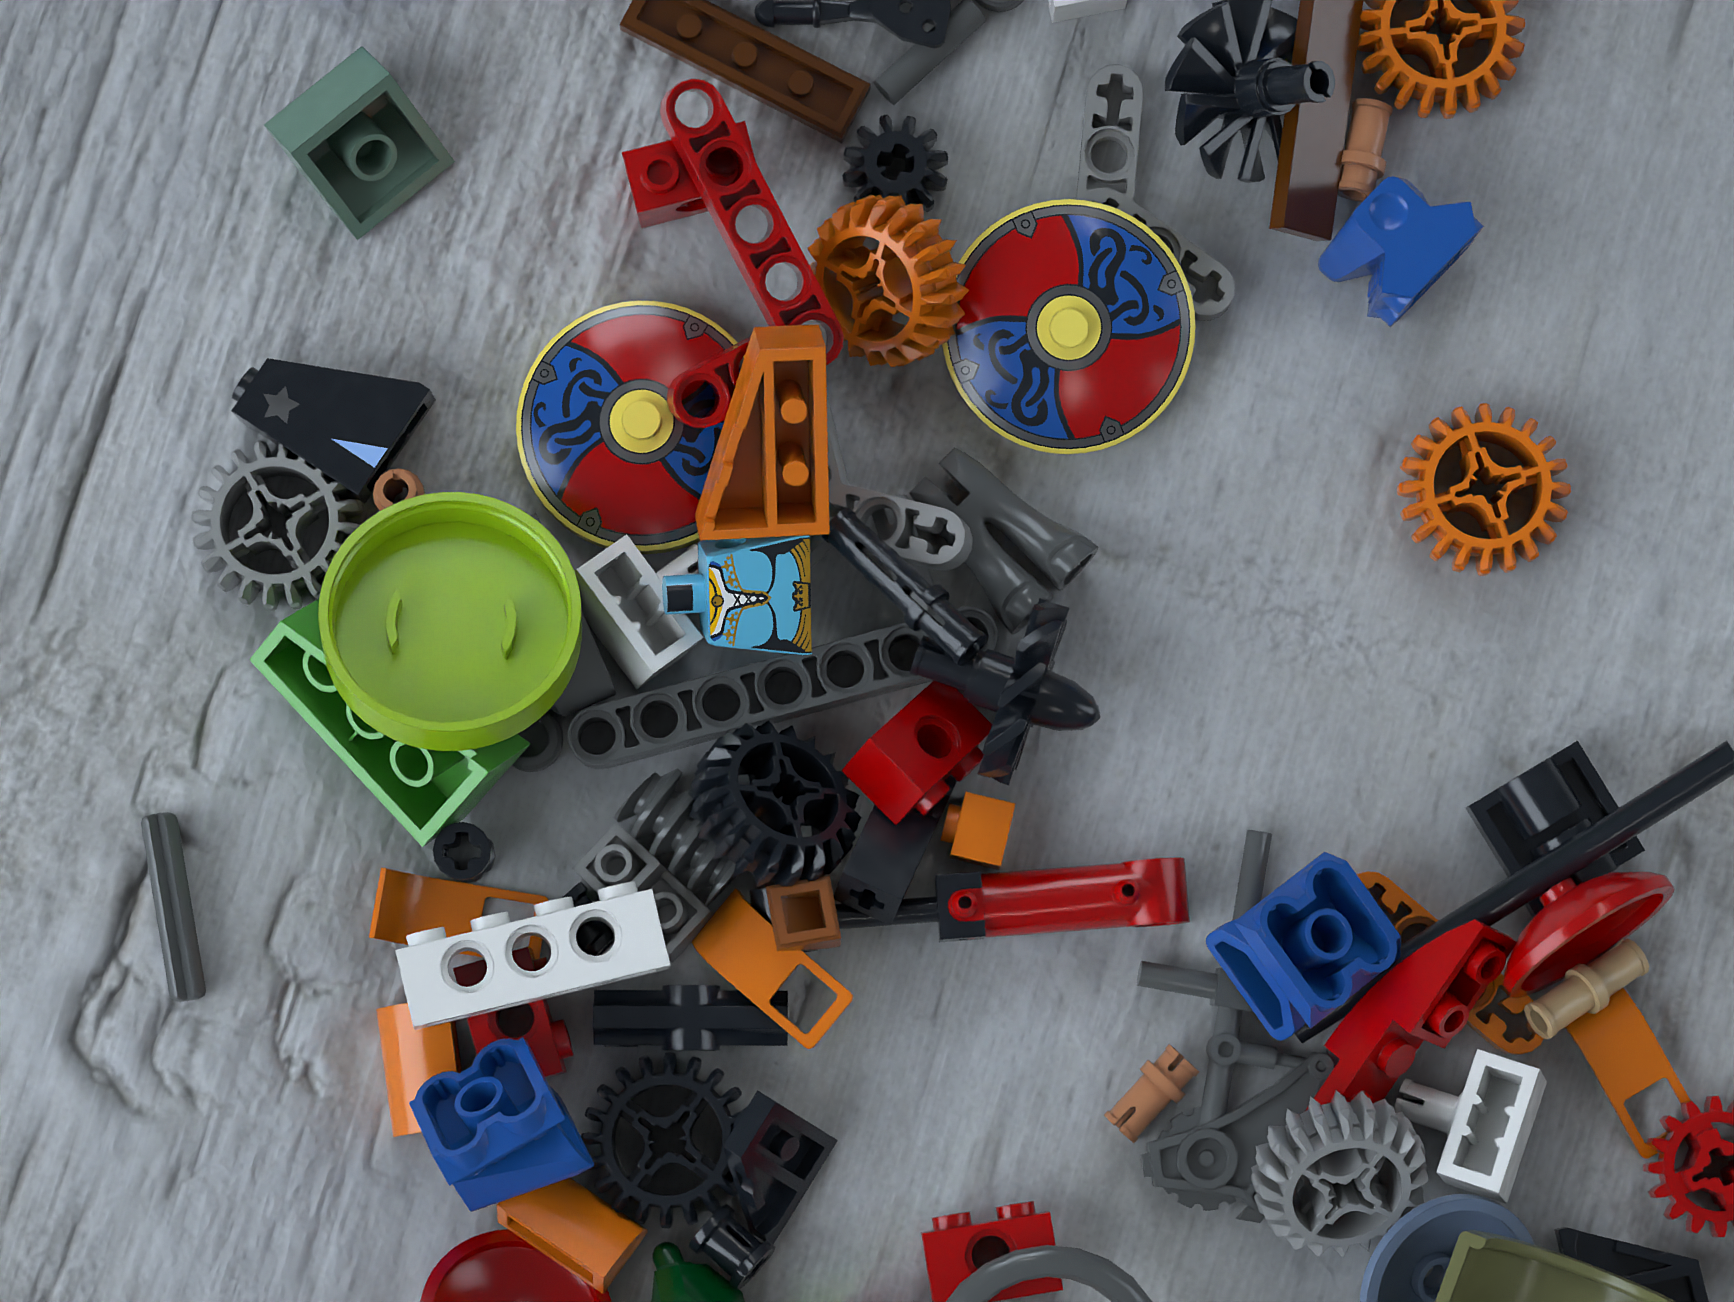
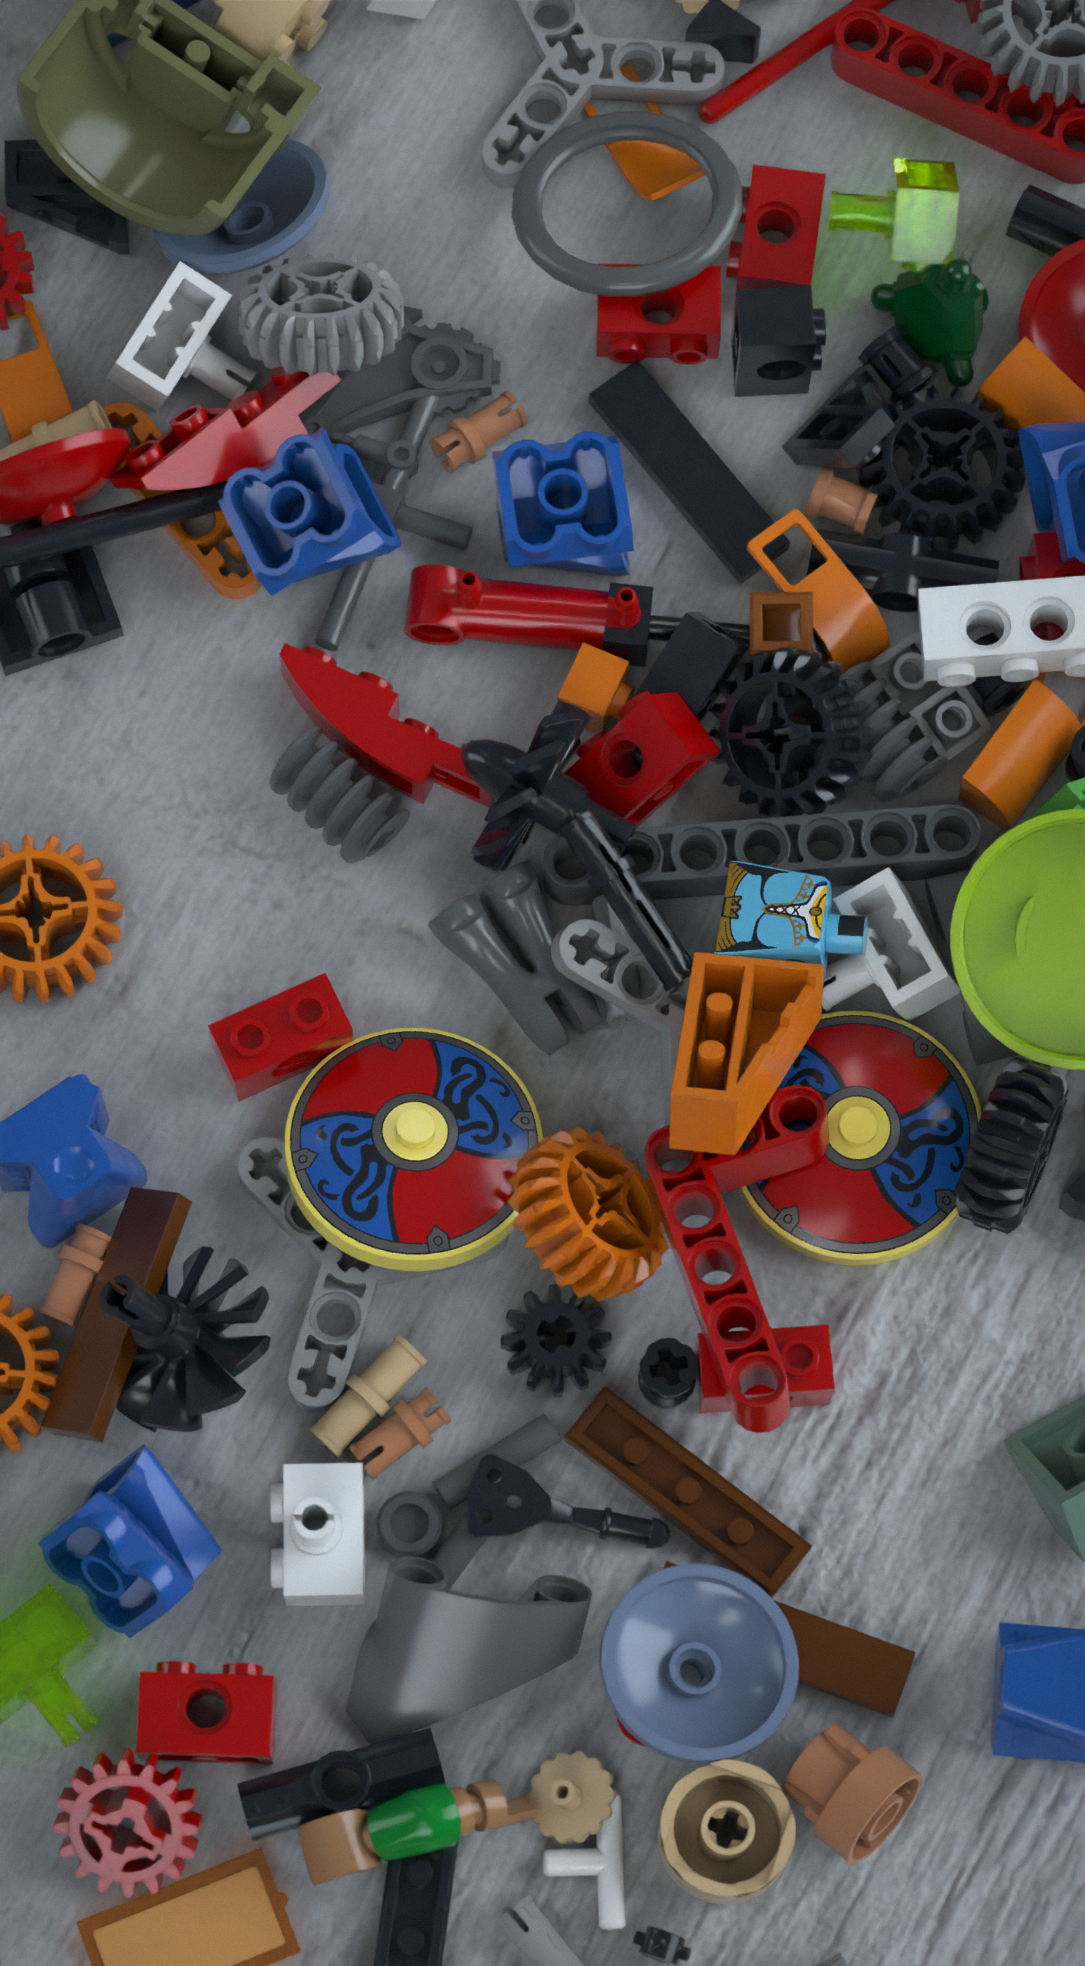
camera: 170 degrees left, 10 degrees down
(488, 415) = (1011, 1145): none -> black gear
(541, 838) = (1020, 757): none -> orange brick
(771, 1079) = (841, 502): none -> nougat bush
(791, 140) = (657, 1389): none -> black bush
(861, 1236) = (776, 341): none -> black brick
(932, 1097) = (685, 468): none -> black tile
(1018, 65) = (400, 1432): none -> nougat pin
(1049, 1010) = (564, 505): none -> blue piece
(1063, 86) = (367, 1395): none -> tan pin
(1208, 753) = (363, 719): none -> red slope
(1214, 666) = (334, 799): none -> dark grey piece
(1218, 412) = (280, 1036): none -> red brick

